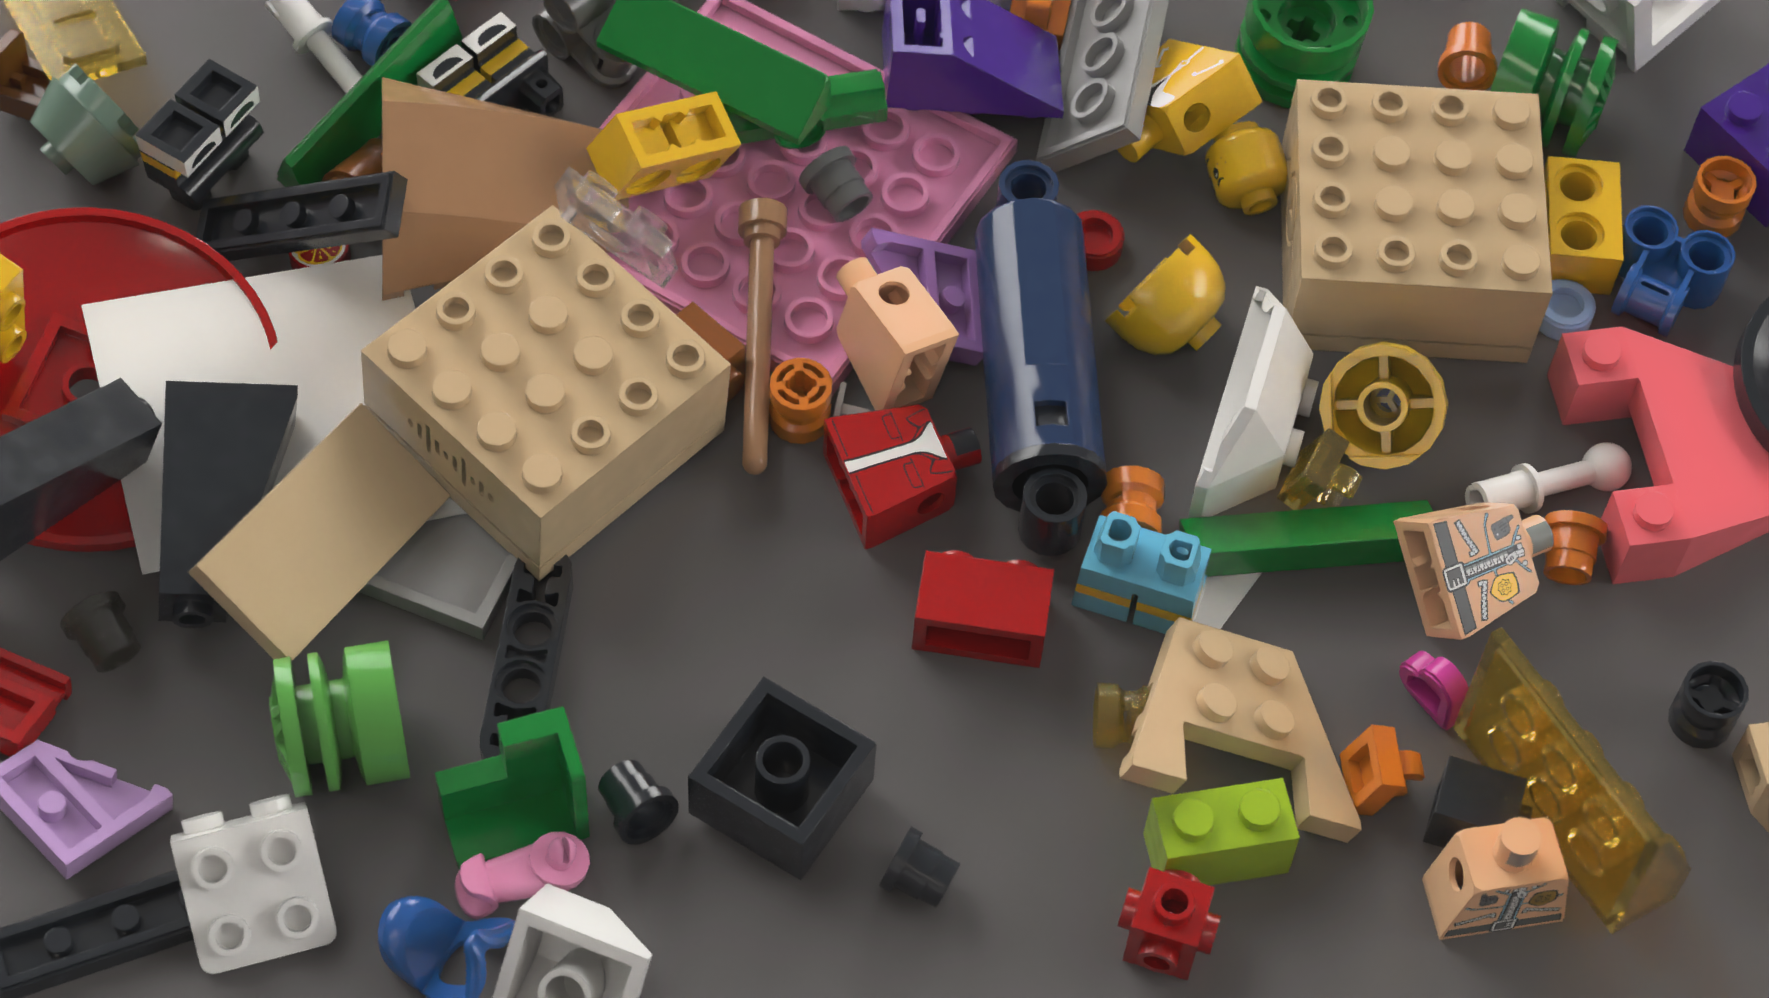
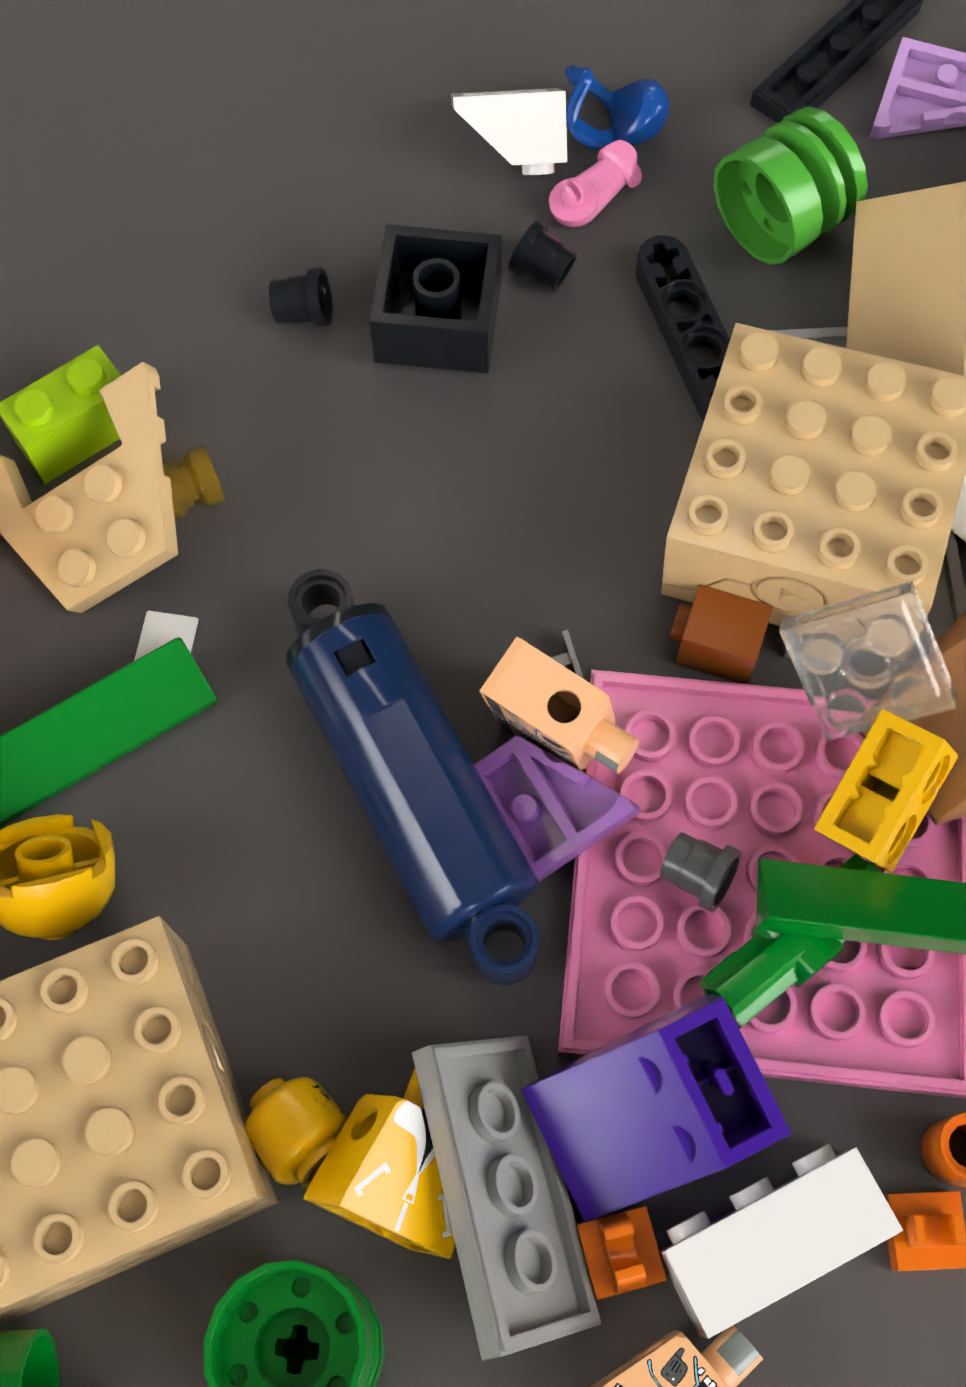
camera: 160 degrees right, 10 degrees up
(253, 885) = (777, 81): white bracket -> none
(519, 794) = (613, 223): green panel -> none
(762, 226) = (743, 783): medium nougat piece -> none
(800, 400) = (606, 648): orange wheel -> none
(895, 468) = (484, 606): red torso -> none
(982, 608) = (351, 518): red brick -> none
(1102, 238) = (425, 971): red tile -> none
(1133, 561) = (201, 594): medium azure hips -> none
(1135, 493) = (259, 670): orange wheel -> none
(1168, 922) = (84, 319): red brick -> none
(1173, 302) = (309, 903): yellow cylinder -> none
(1257, 410) = (180, 829): white wedge -> none
(1320, 474) = (98, 788): clear yellow tile -> none

